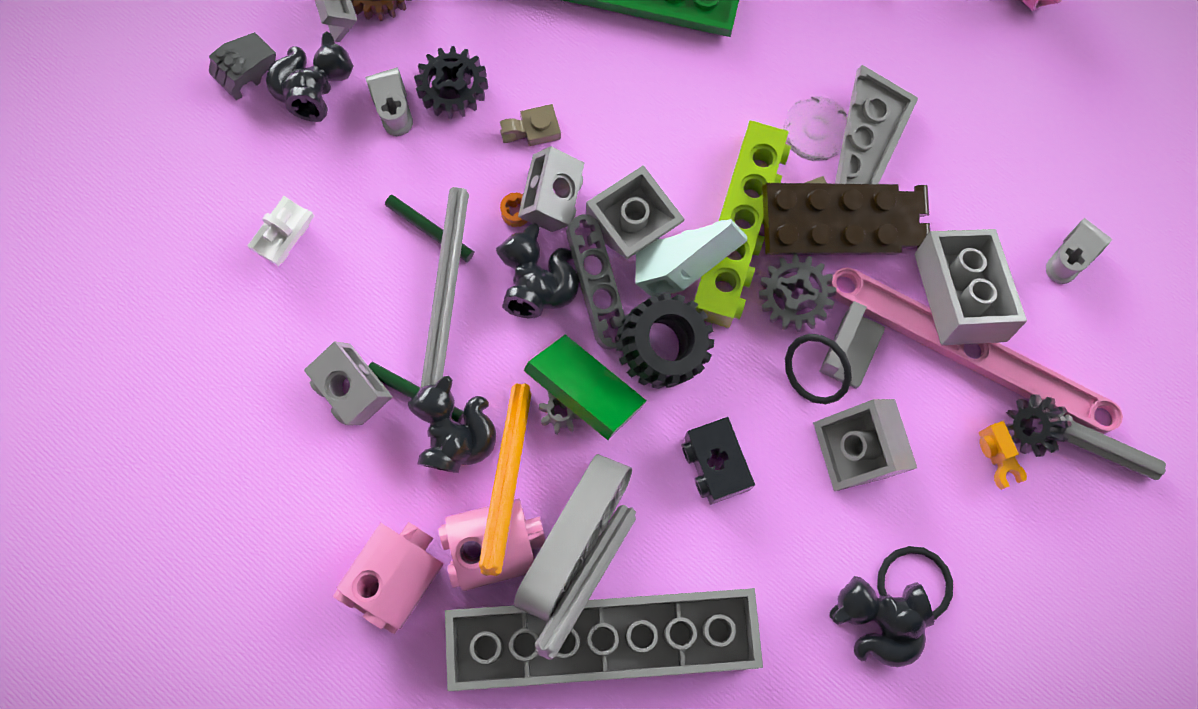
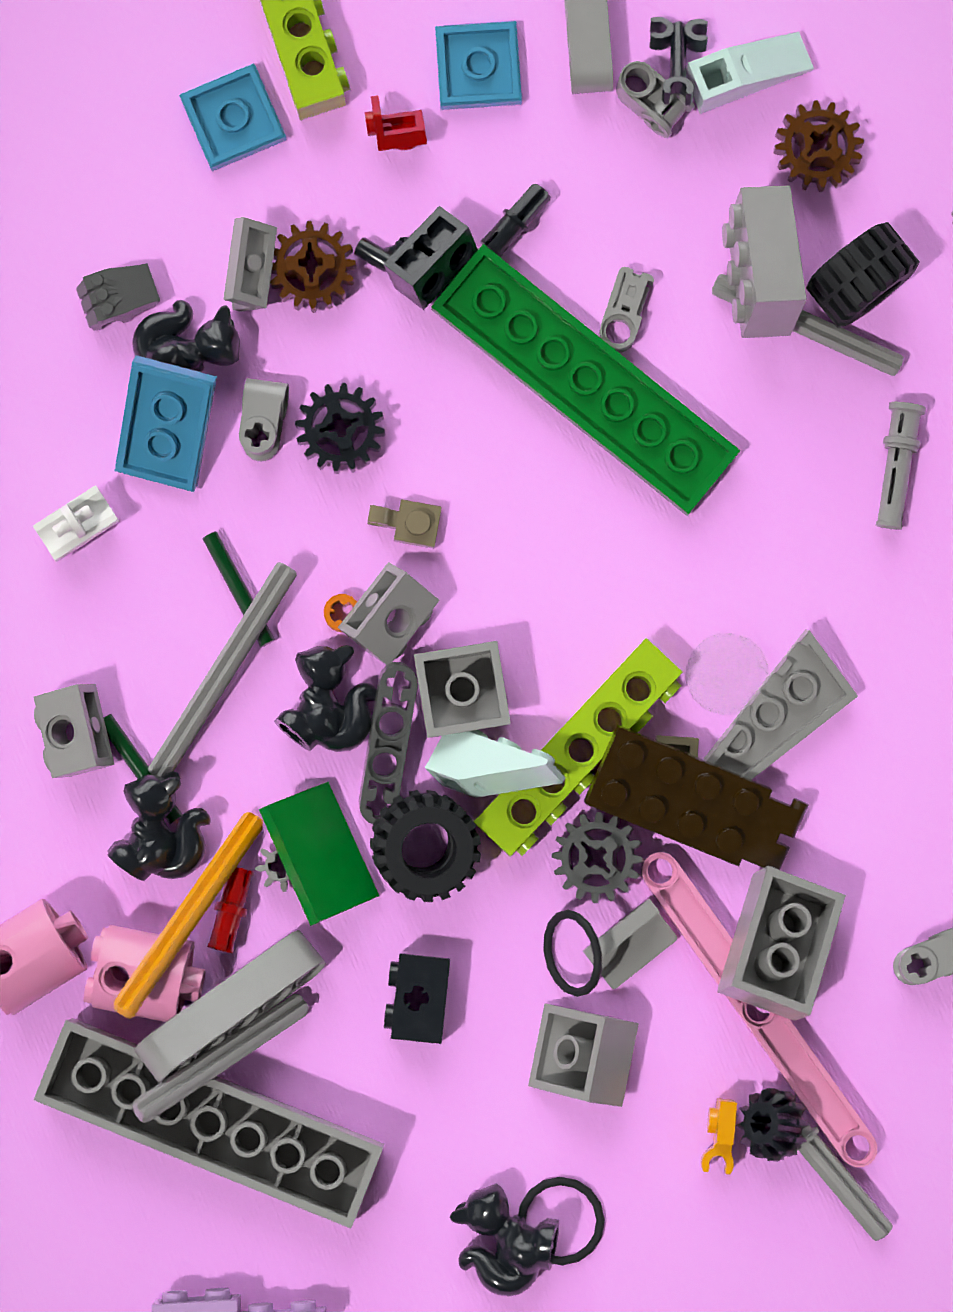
camera: 30 degrees right, 10 degrees up
(317, 127) = (165, 423): none -> dark azure tile
(537, 465) = (230, 910): none -> red pin

